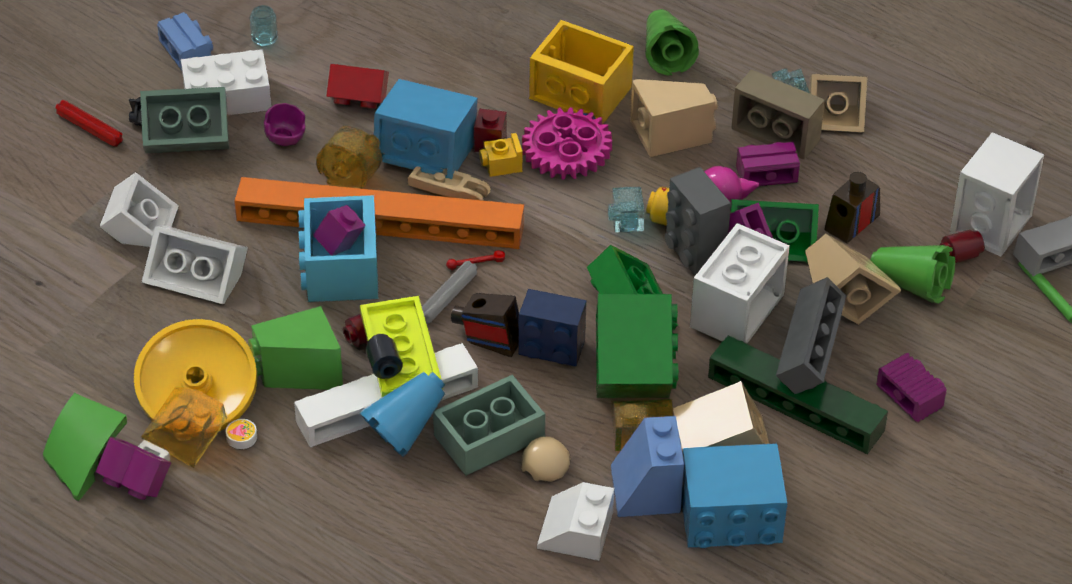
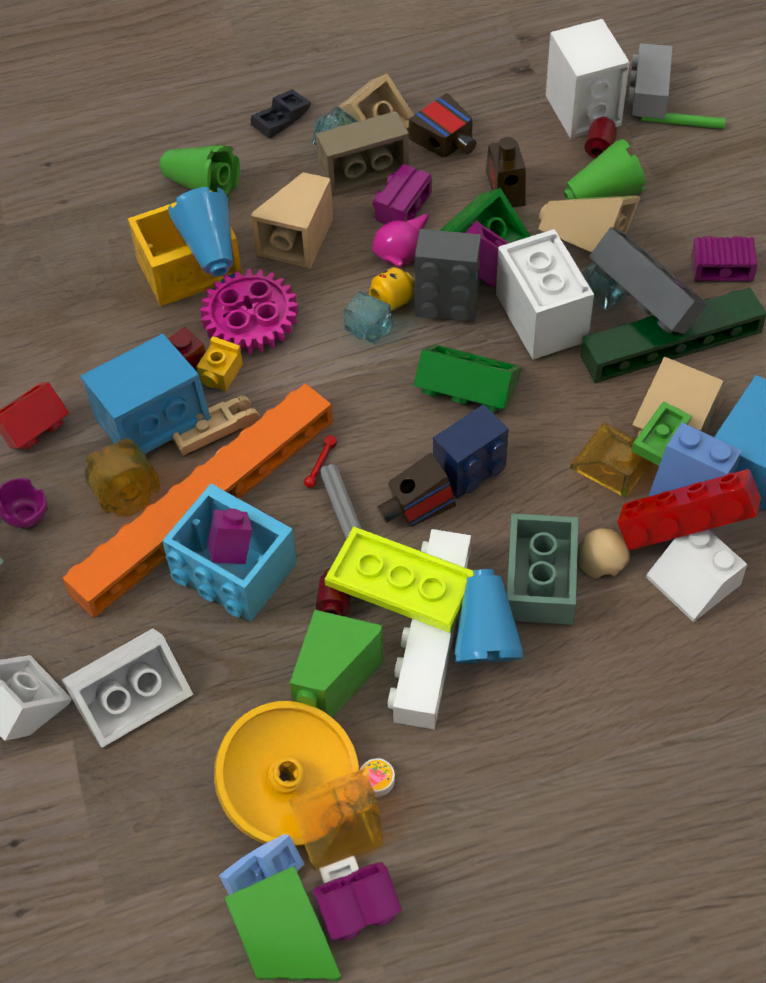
camera: 50 degrees left, 10 degrees up
(133, 407) = (262, 863): none -> light blue slope
(383, 356) = (419, 597): black brick -> none
(581, 57) = (205, 227): none -> dark azure cone
(610, 470) = (689, 509): none -> red brick
(636, 346) = (556, 405): green container -> none
(687, 417) = (658, 432): none -> bright green slope
(788, 54) = (284, 112): none -> black slope
(866, 147) = (443, 127): none -> dark brown torso

